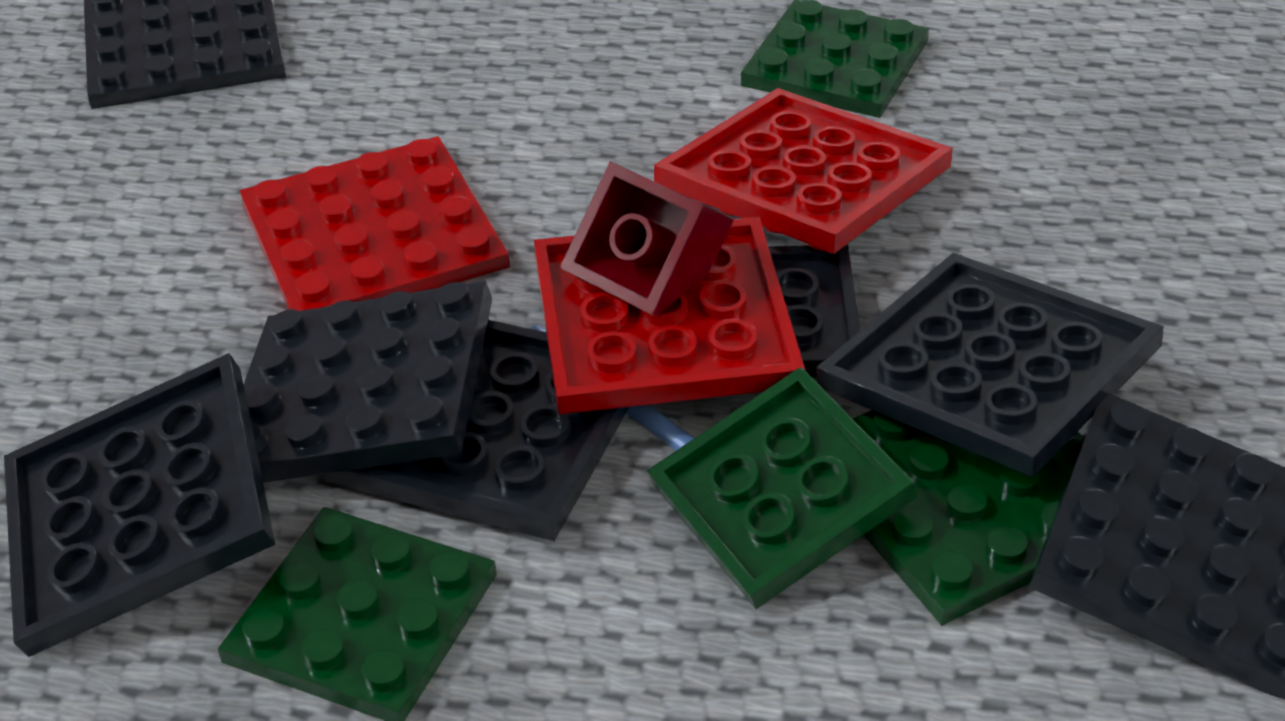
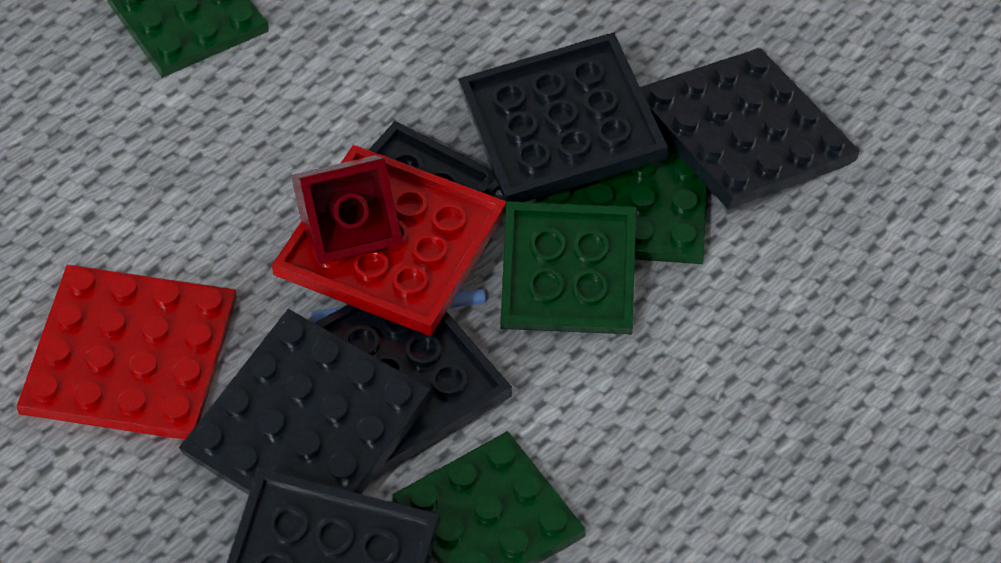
camera: 60 degrees left, 10 degrees up
(804, 169) = (304, 97): red plate -> none

